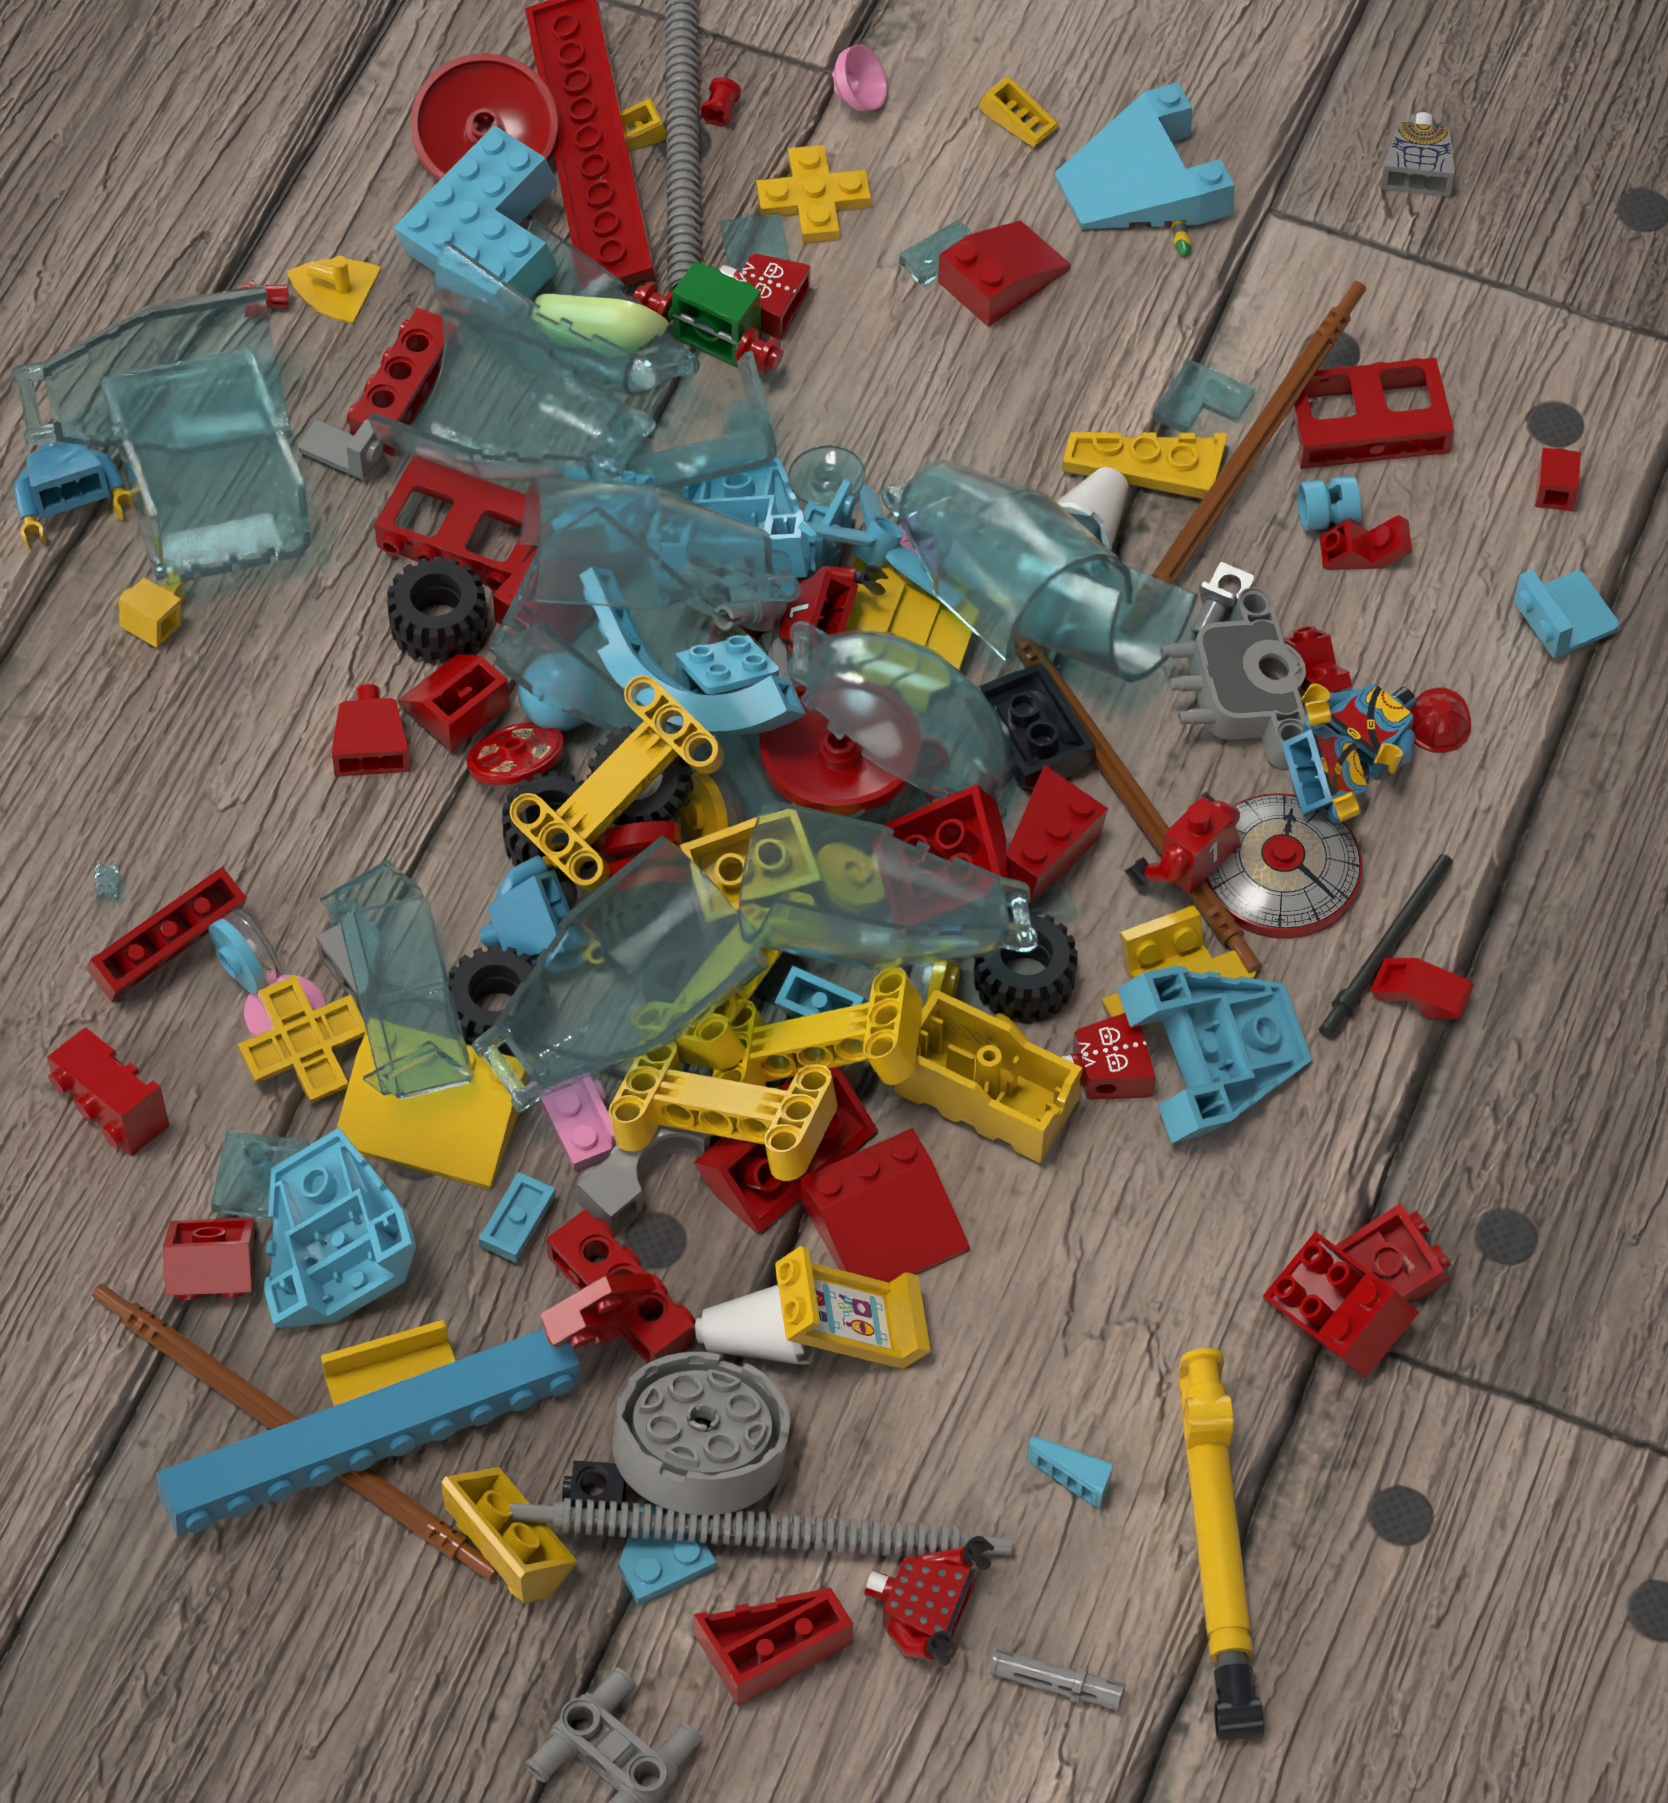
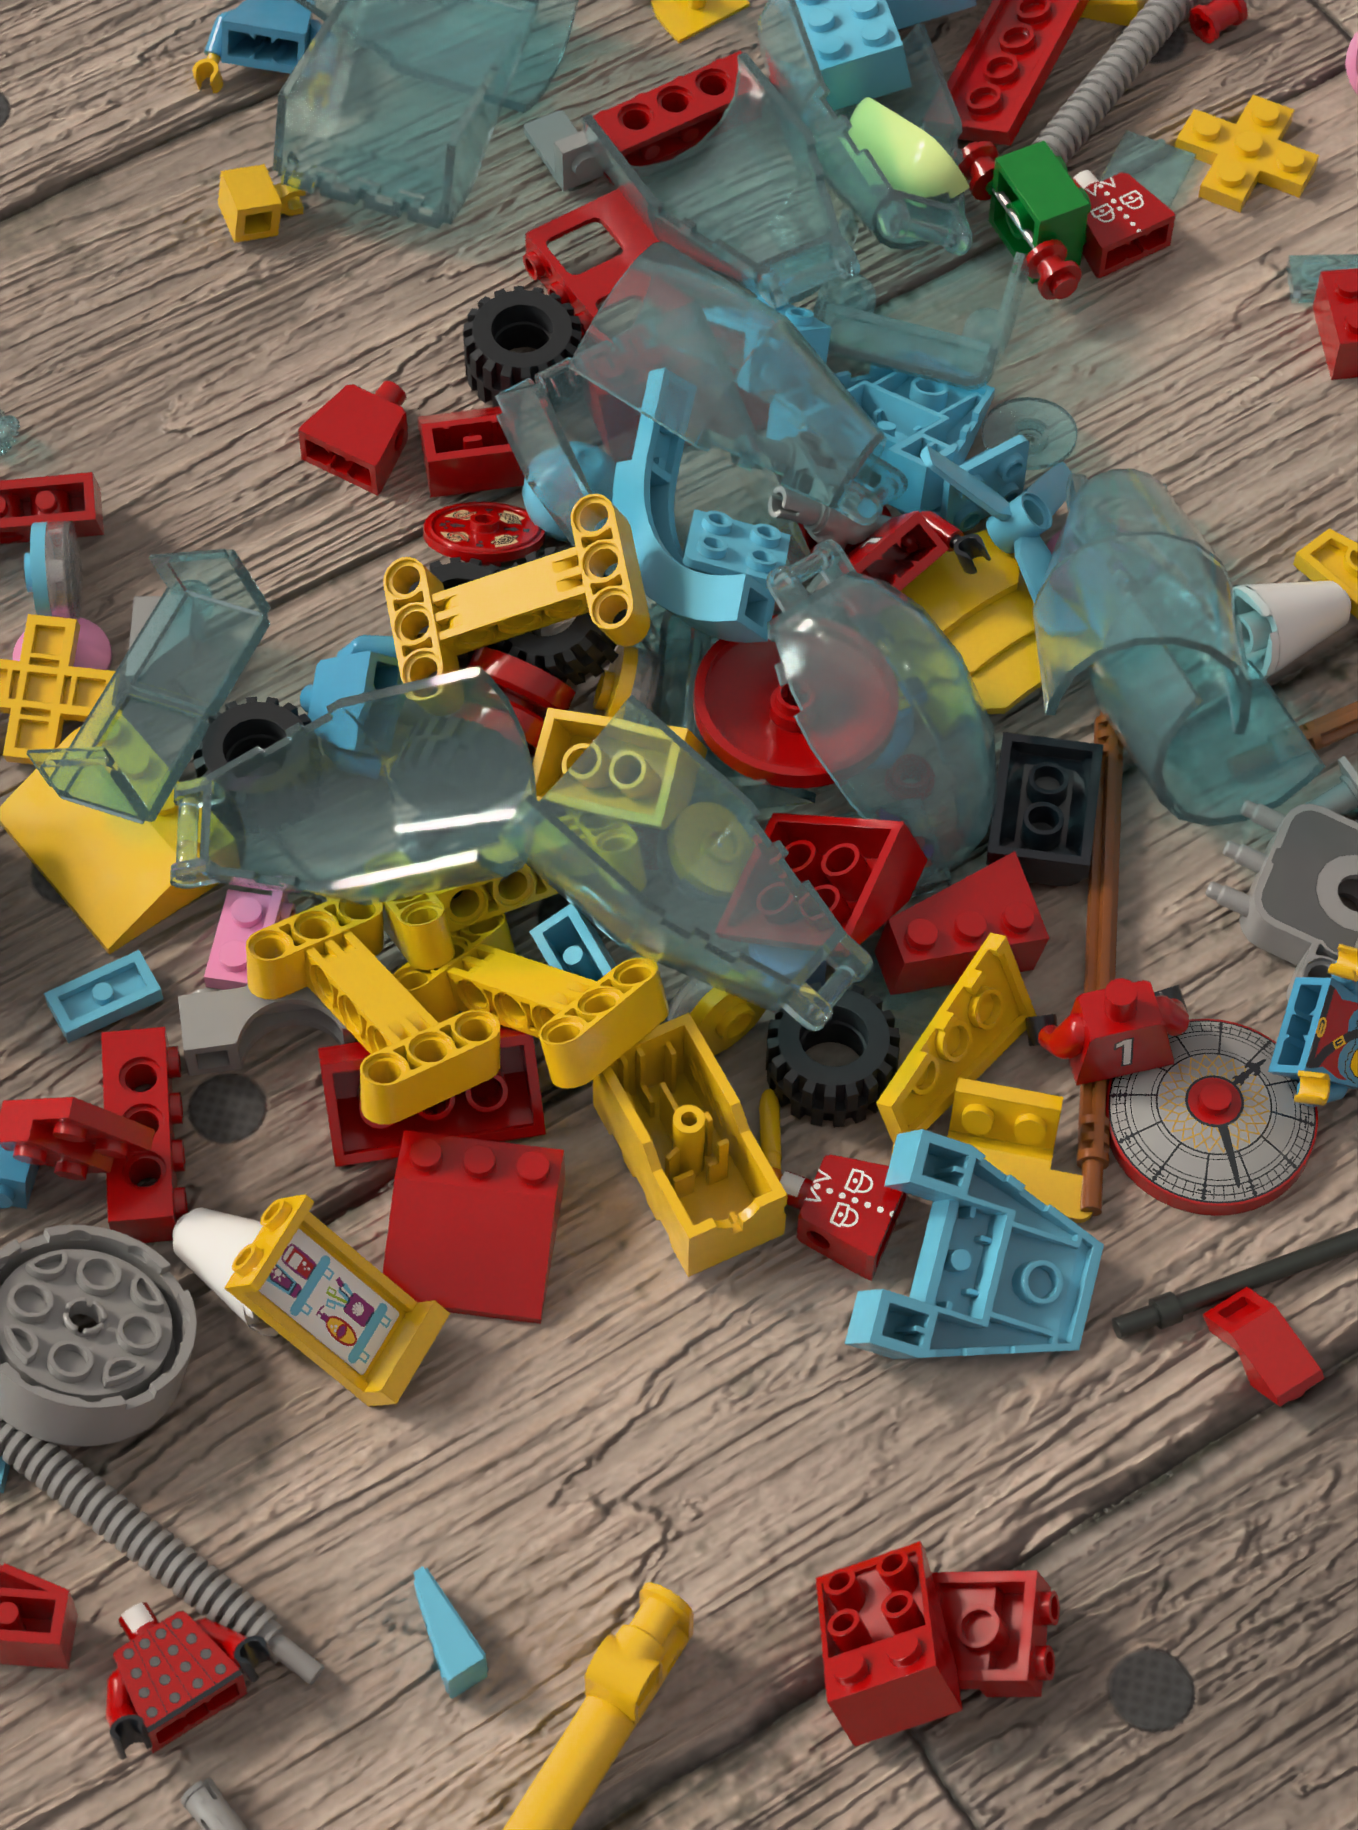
camera: 35 degrees right, 0 degrees up
(1101, 910) = (962, 1039): none -> yellow wing

